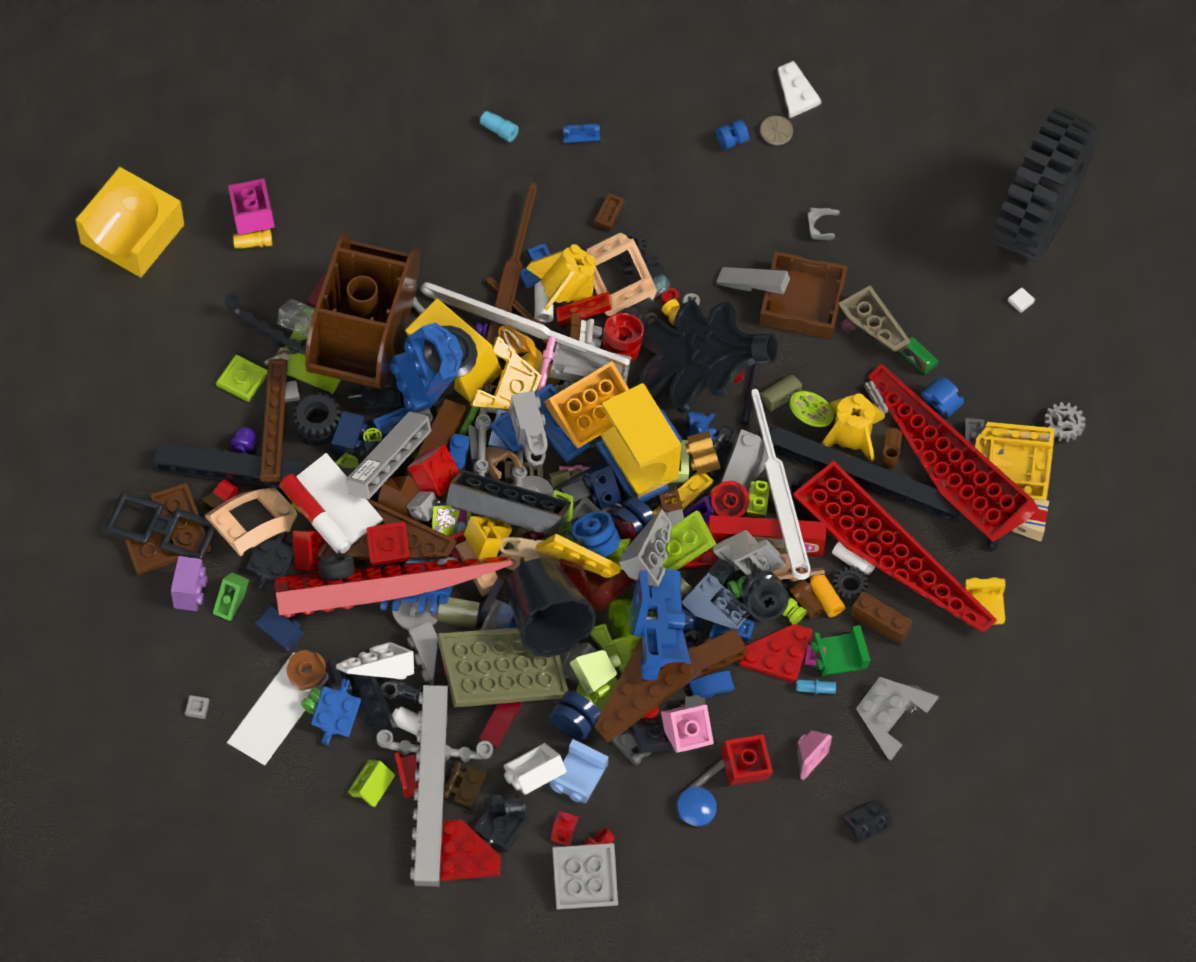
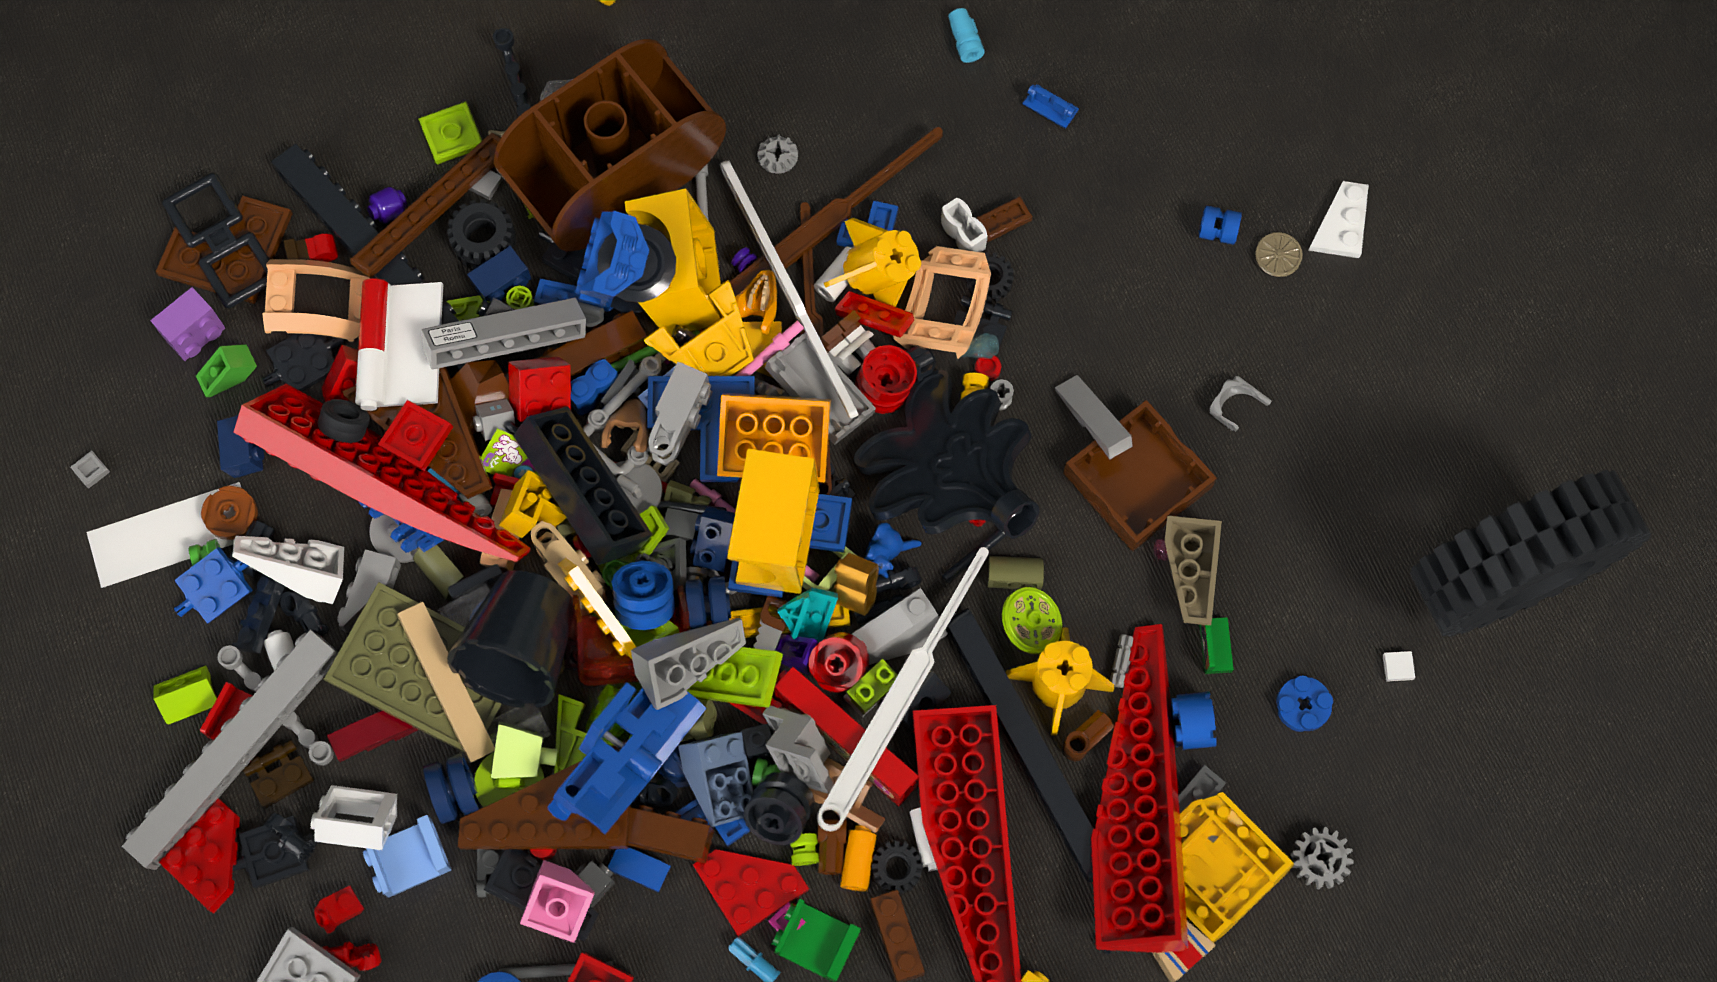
camera: 40 degrees right, 10 degrees up
(446, 268) = (785, 162): none -> light grey gear
(521, 661) = (446, 685): none -> tan tile
(591, 229) = (960, 225): none -> white brick
(690, 486) = (809, 613): none -> teal slope
(992, 344) = (1302, 688): none -> blue plate

